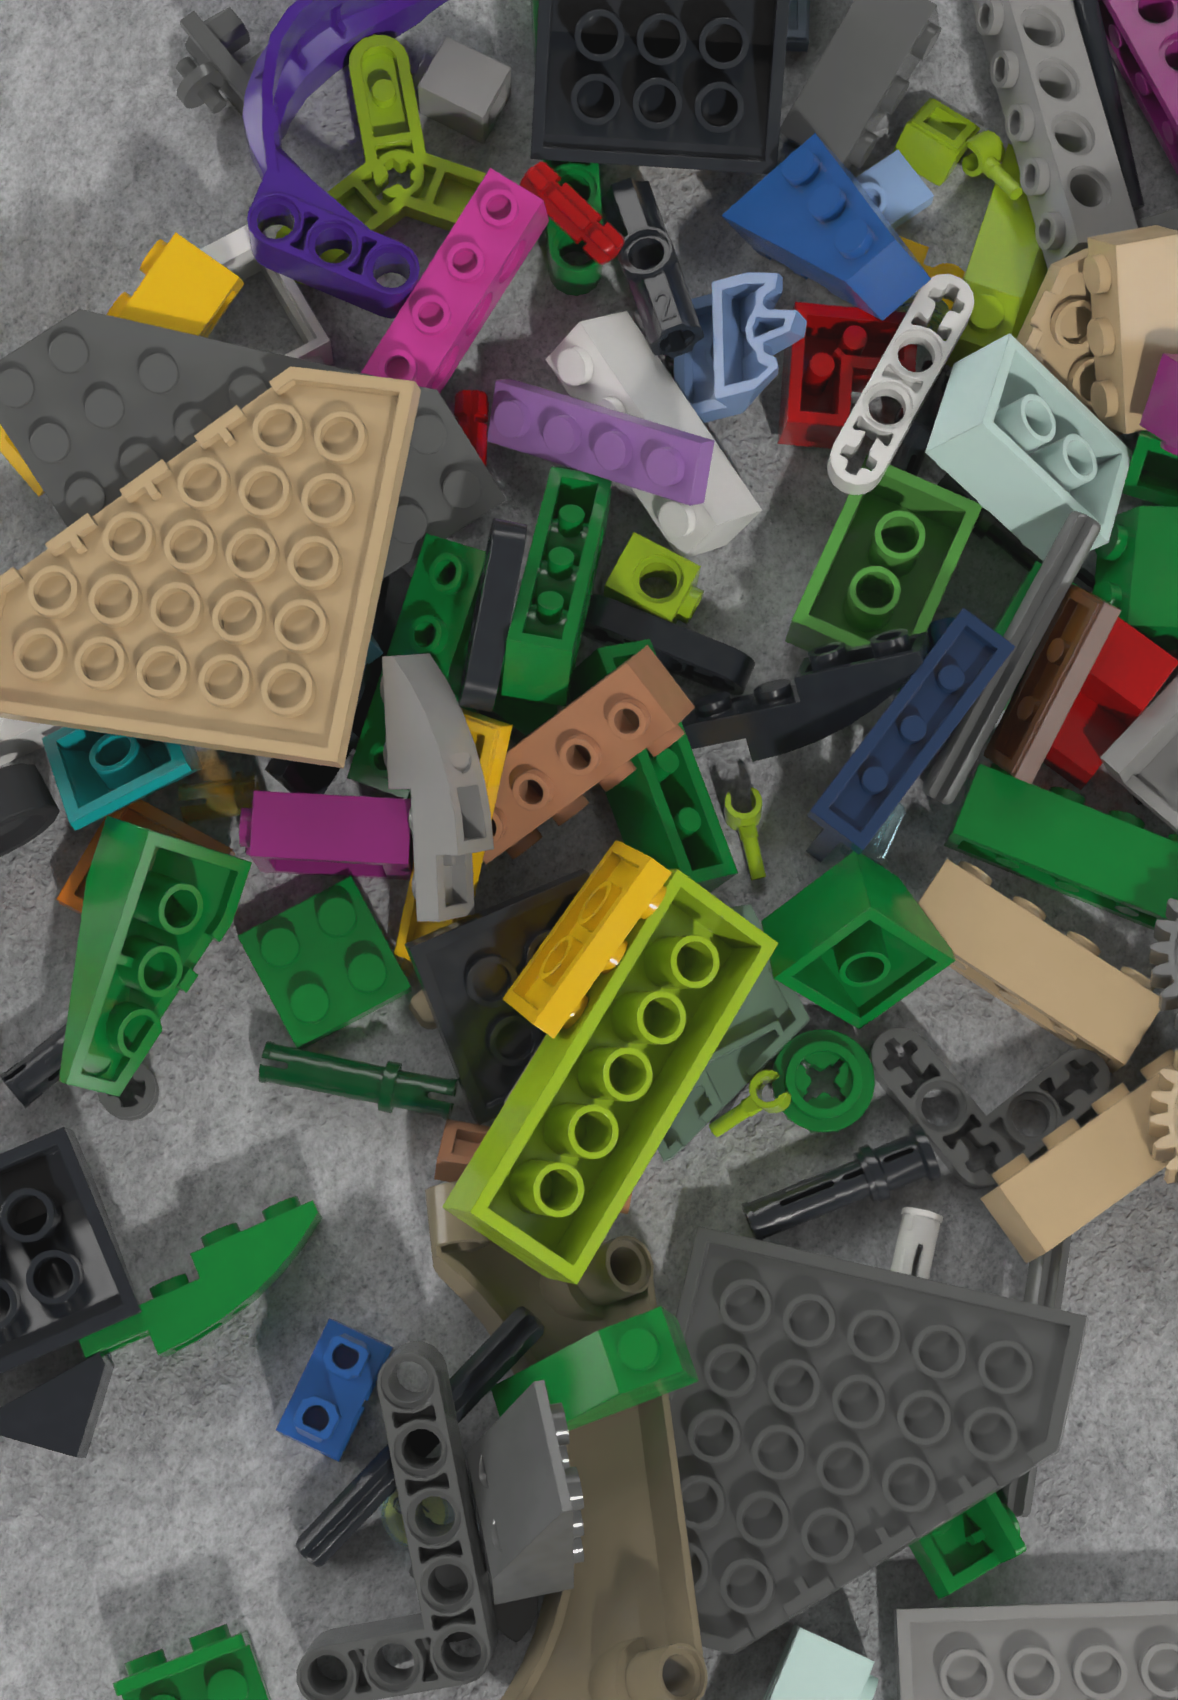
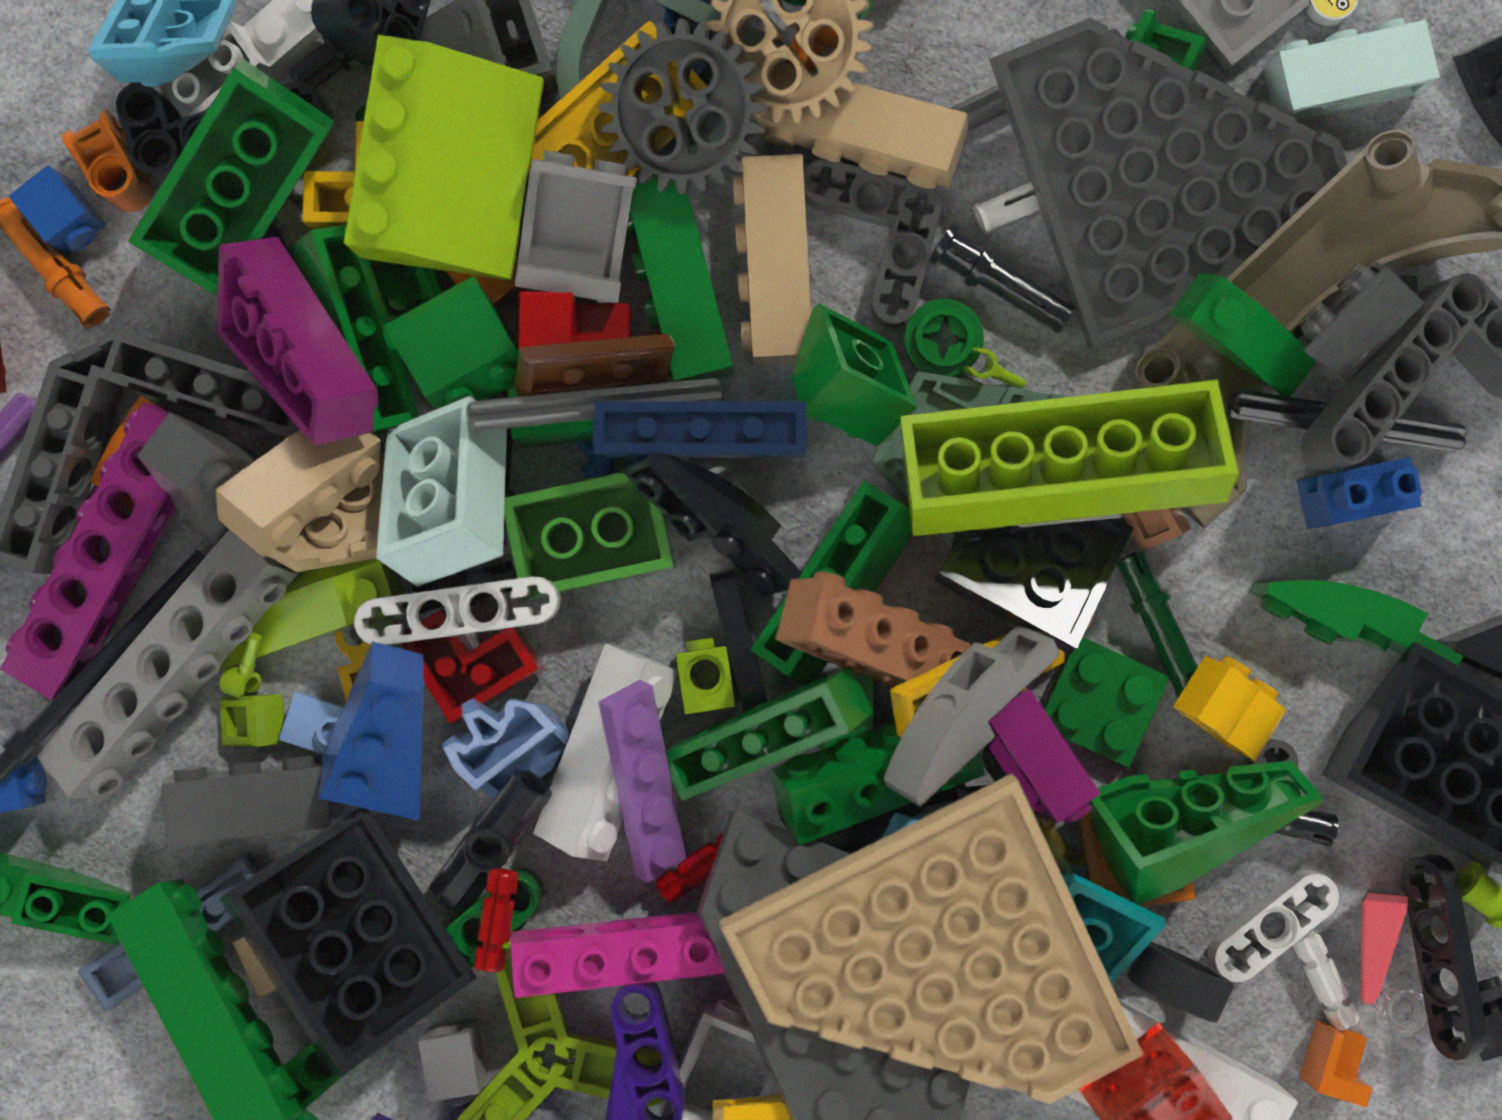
camera: 120 degrees left, 10 degrees up
(221, 1076) = (1231, 706): none -> yellow brick
(492, 614) = (831, 757): black beam -> none
(588, 938) = (994, 536): yellow plate -> none
(746, 825) = (821, 497): lime hand -> none

